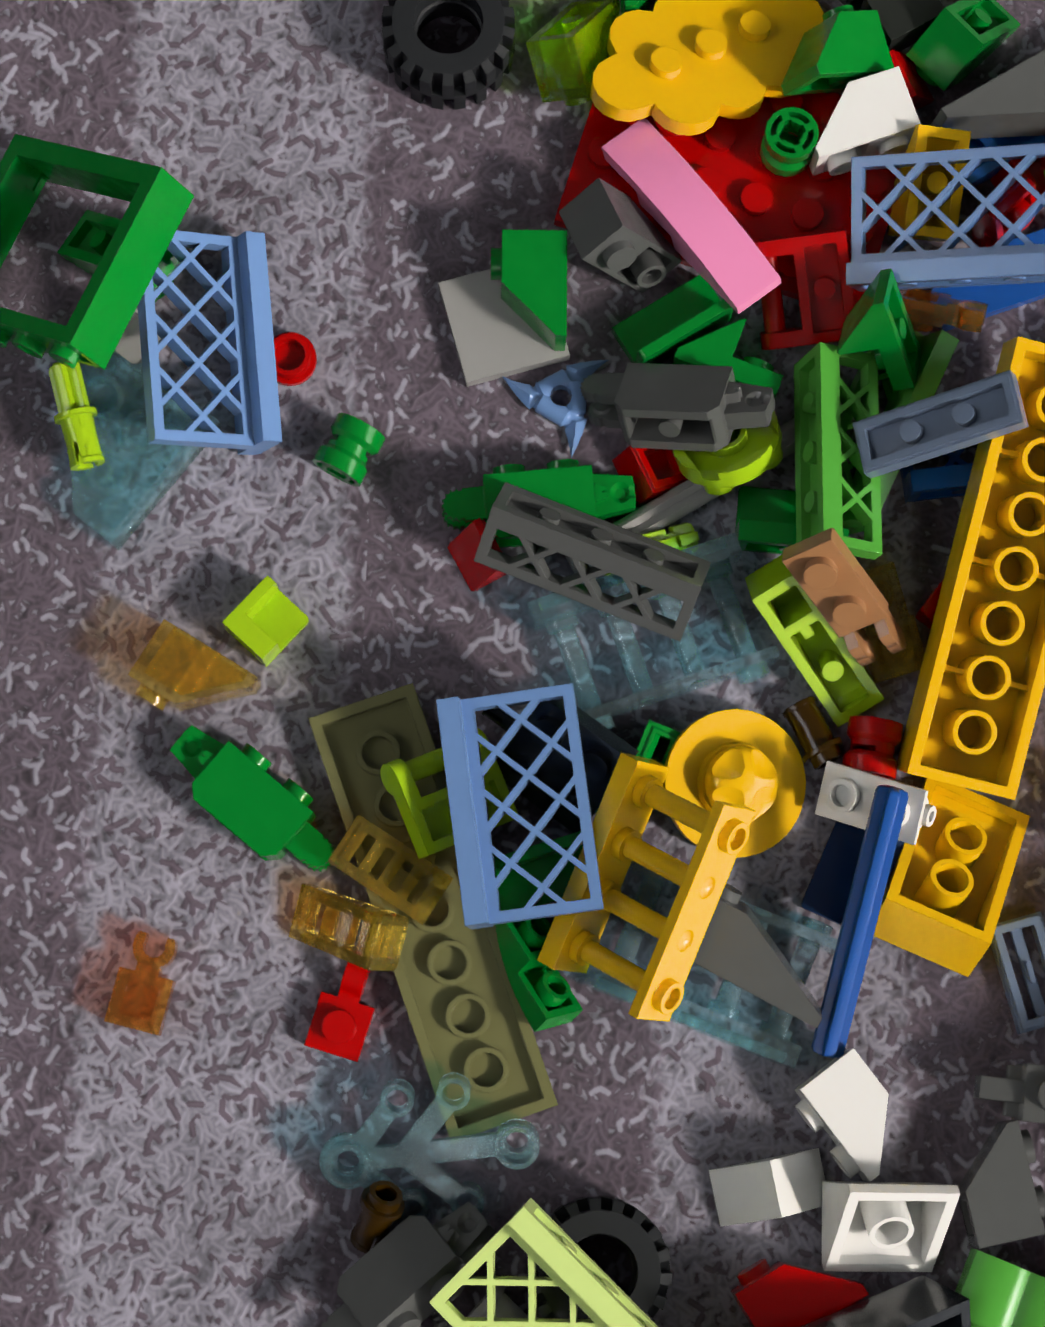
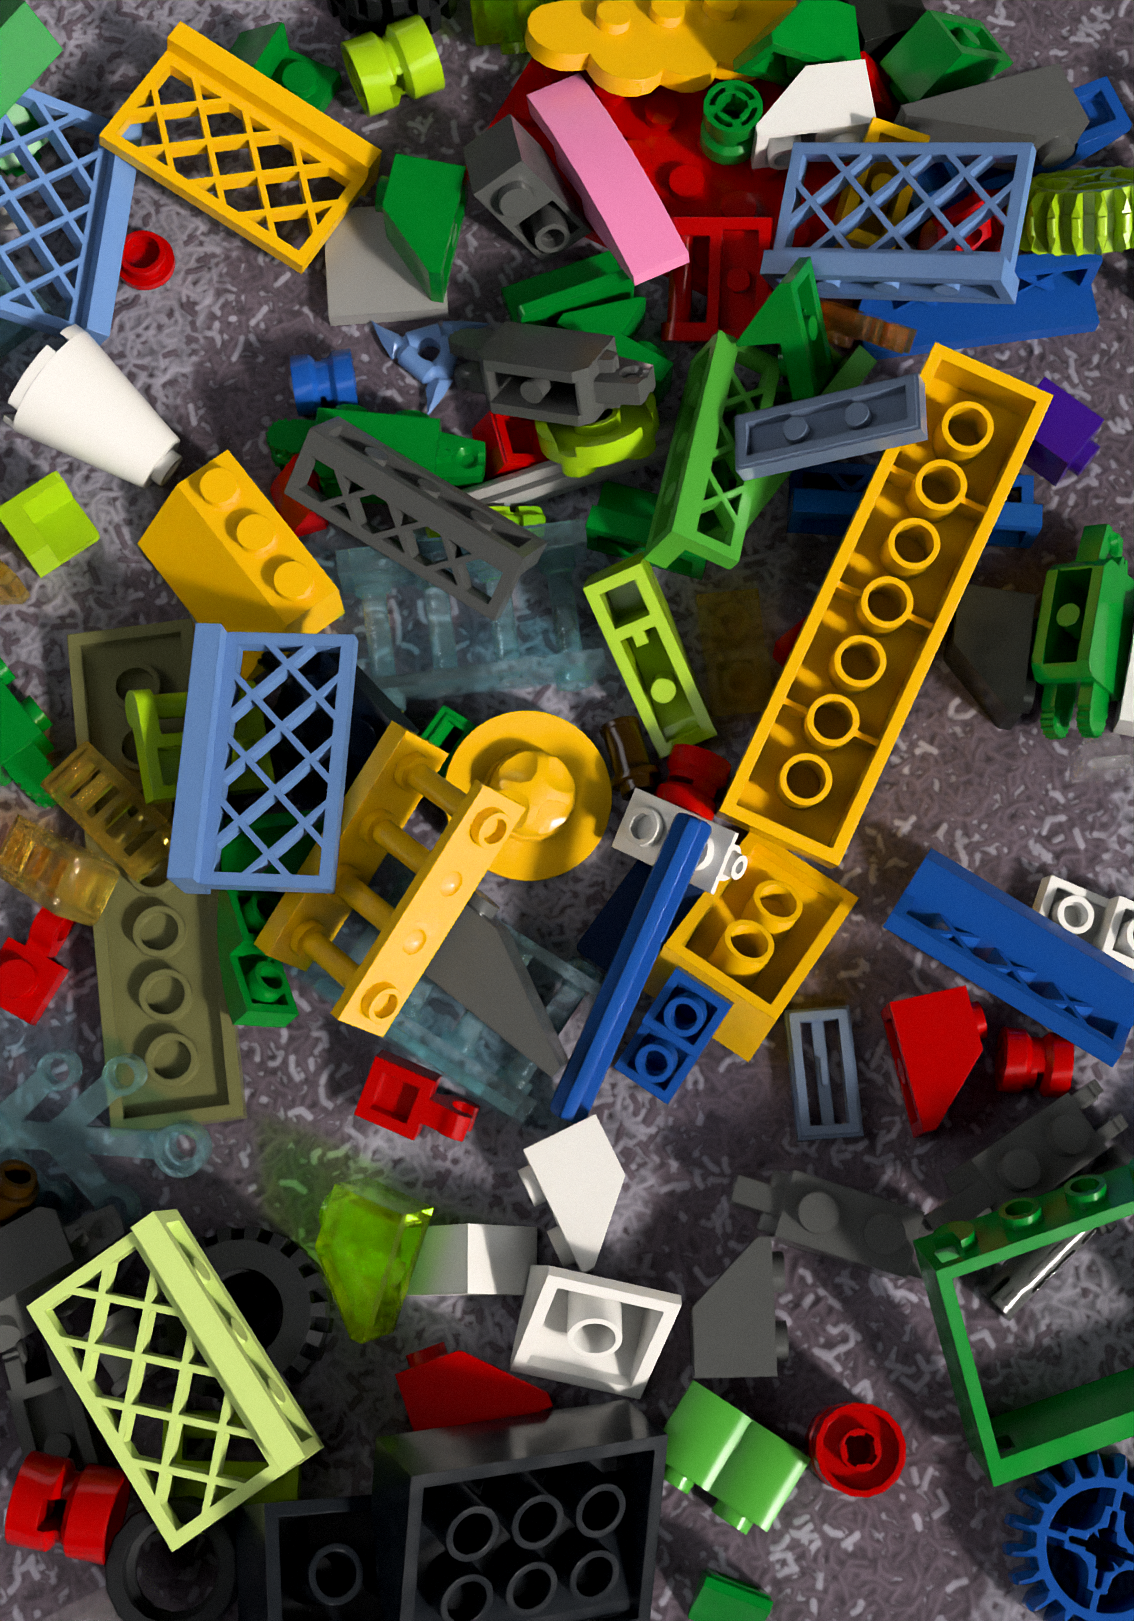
camera: 15 degrees right, 5 degrees down
(288, 516) = (93, 413): none -> white cone
(347, 453) = (181, 363): green wheel -> none
(357, 157) = (269, 53): none -> green slope
(370, 201) = (269, 109): none -> yellow fence
(441, 625) = (238, 559): none -> yellow slope
(470, 137) = (393, 65): none -> lime wheel
(483, 443) = (323, 381): none -> blue wheel
(688, 1062) = (405, 1098): none -> red plate
(689, 1196) = (370, 1252): none -> clear neon green slope
(843, 594) = (686, 598): medium nougat hinge -> none
(903, 967) = (673, 1034): none -> blue slope

